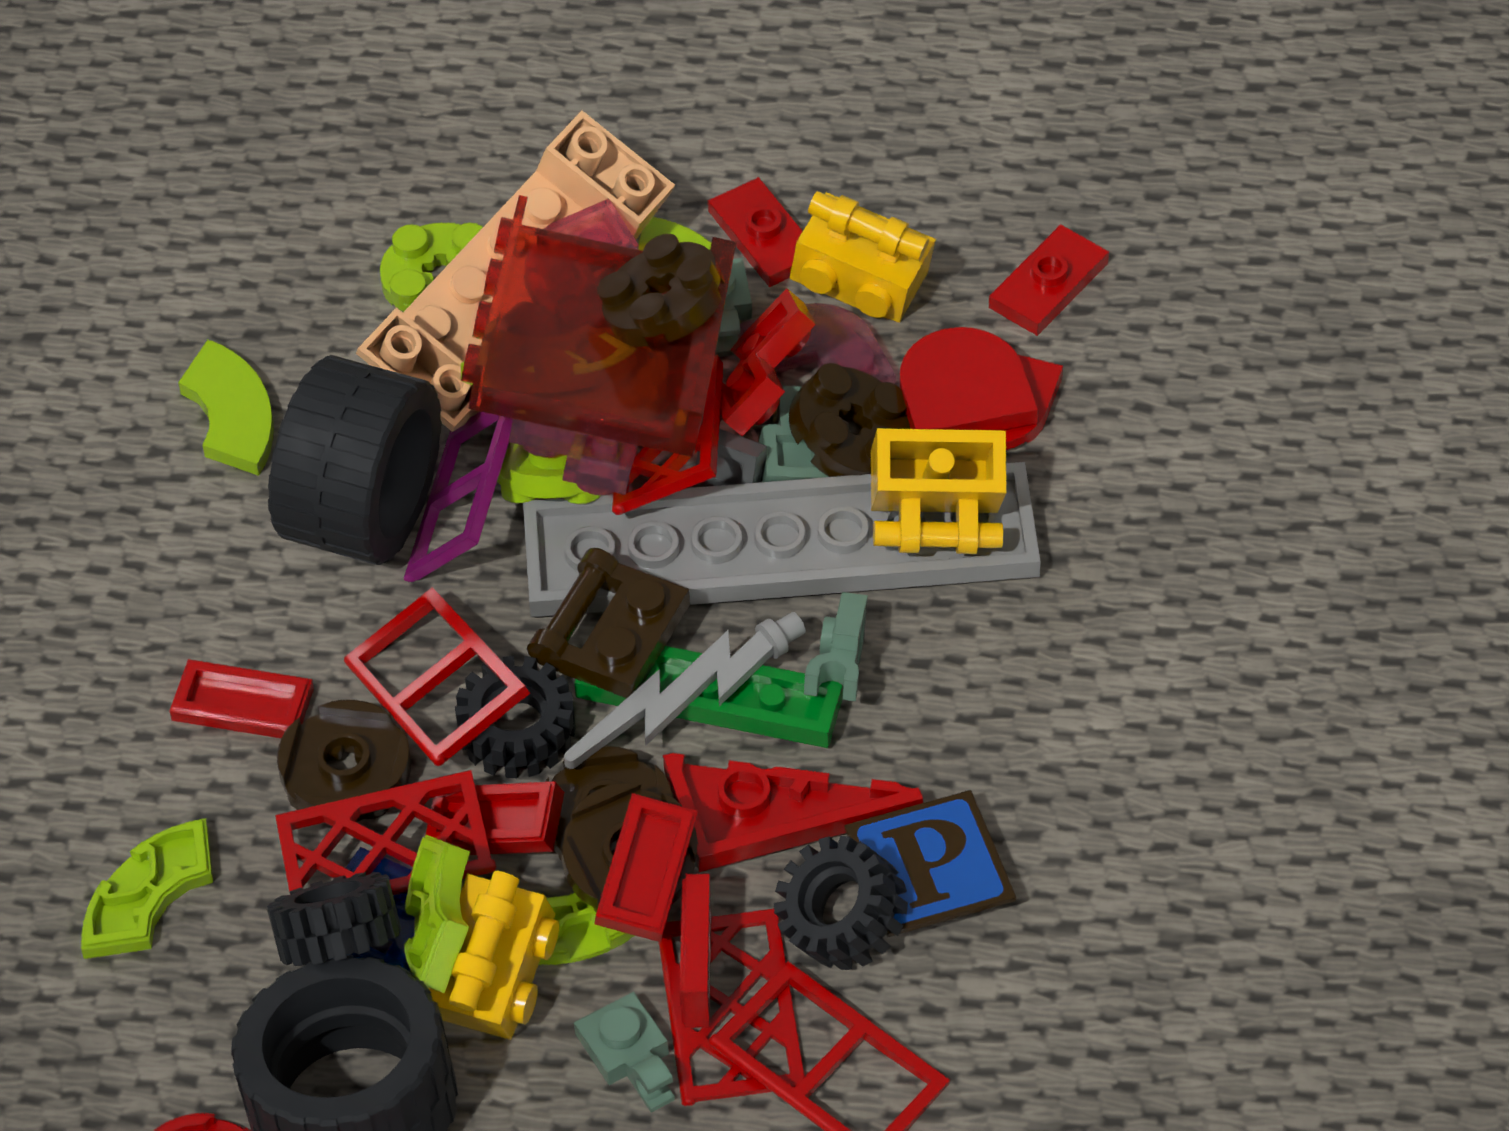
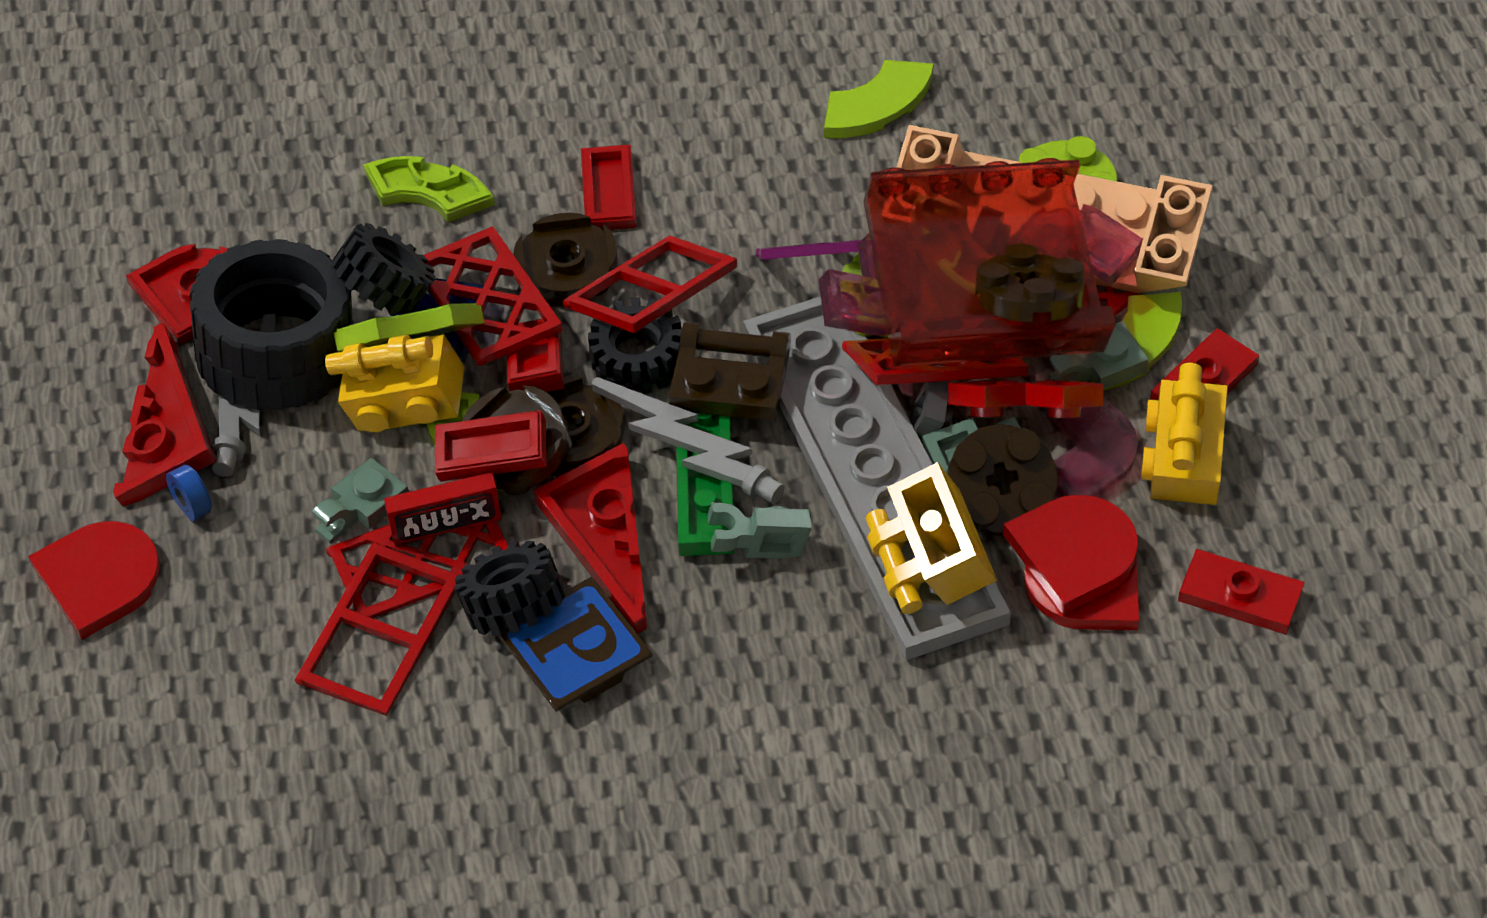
camera: 75 degrees right, 0 degrees up
(354, 459) = (807, 122): black tyre -> none

